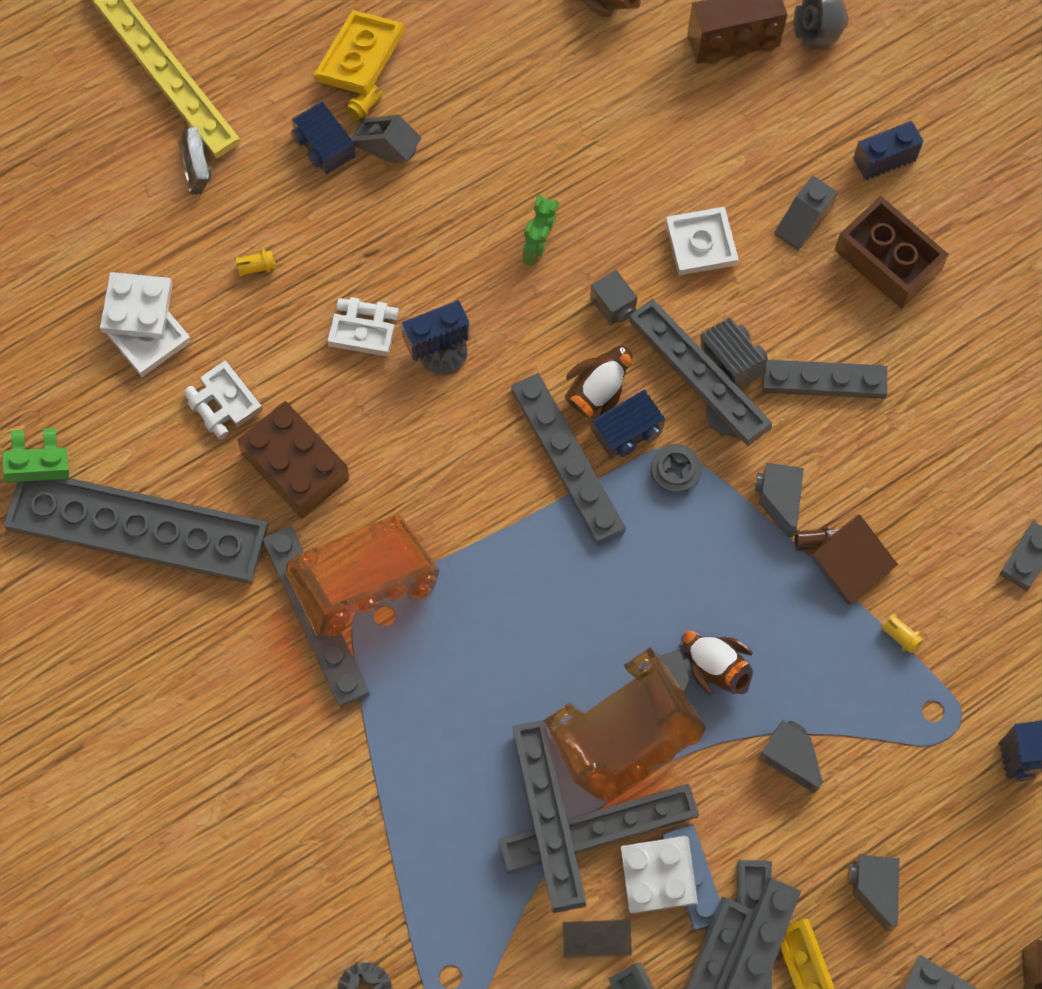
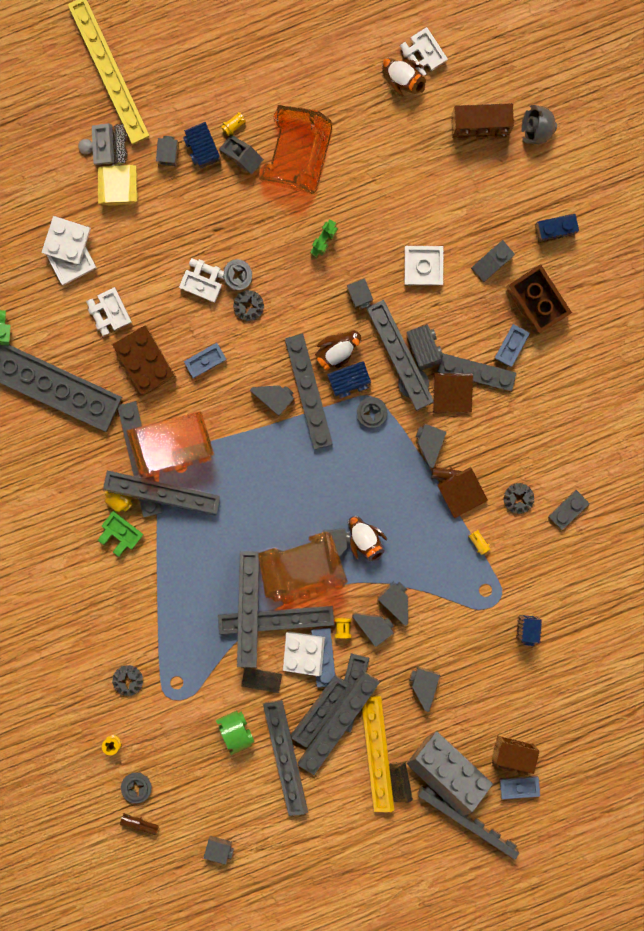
camera: 10 degrees right, 20 degrees up
(168, 166) = (101, 144): none -> light grey plate
(202, 218) = (117, 185): none -> light yellow slope
(256, 263) = (146, 223): yellow pin -> none
(271, 156) = (167, 151): none -> dark grey brick
(292, 682) = (118, 502): none -> yellow head
(308, 735) = (122, 530): none -> bright green plate
(359, 52) = (236, 88): yellow tile -> none
(362, 654) = (161, 493): none -> dark grey plate
(391, 442) = (205, 360): none -> sand blue plate
(409, 295) = (245, 276): none -> gear
(436, 330) = (244, 296): dark blue brick -> none
(471, 113) = (299, 149): none -> clear orange windscreen
(513, 474) = (274, 397): none -> dark grey slope
(714, 818) = (342, 628): none -> yellow bush
(765, 804) = (374, 627): none -> dark grey slope
(797, 412) = (453, 392): none -> reddish brown tile
(868, 328) = (512, 345): none -> sand blue plate
(951, 566) = (509, 498): none -> dark grey gear

